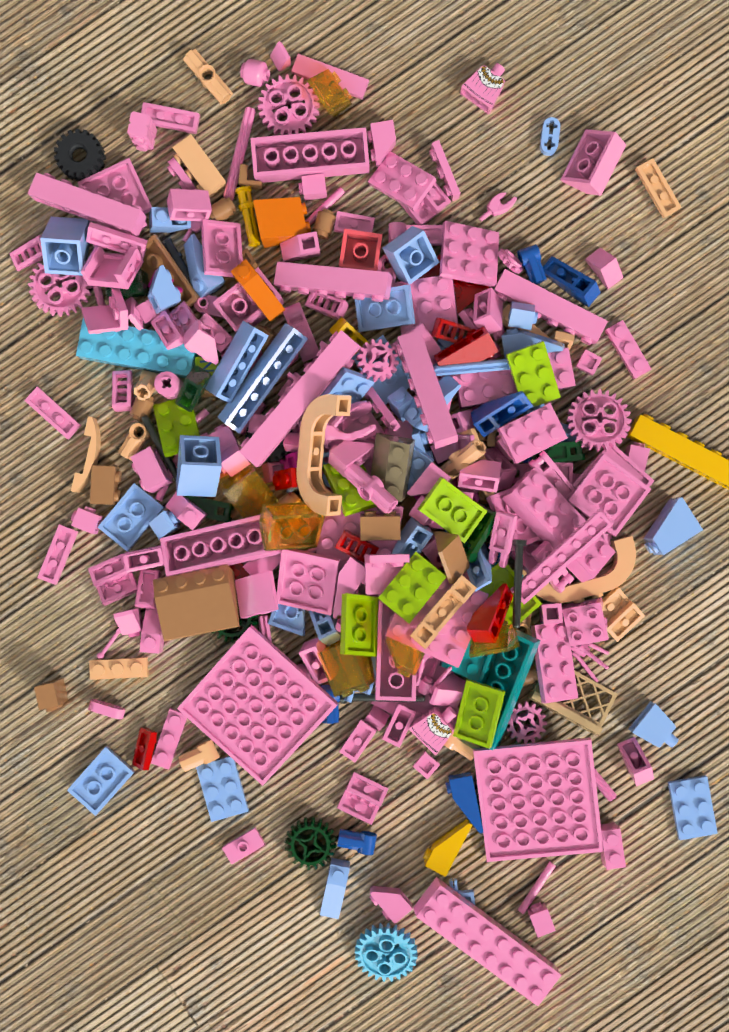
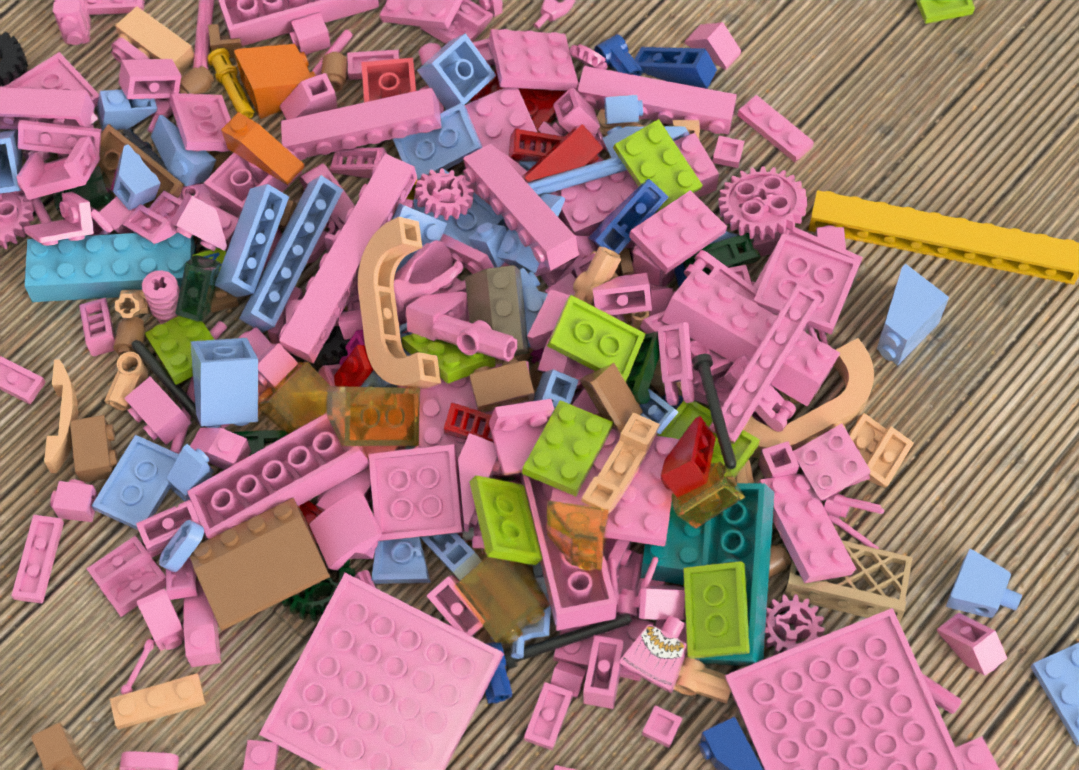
camera: 20 degrees left, 25 degrees down
(149, 577) = (181, 546): none -> light blue beam

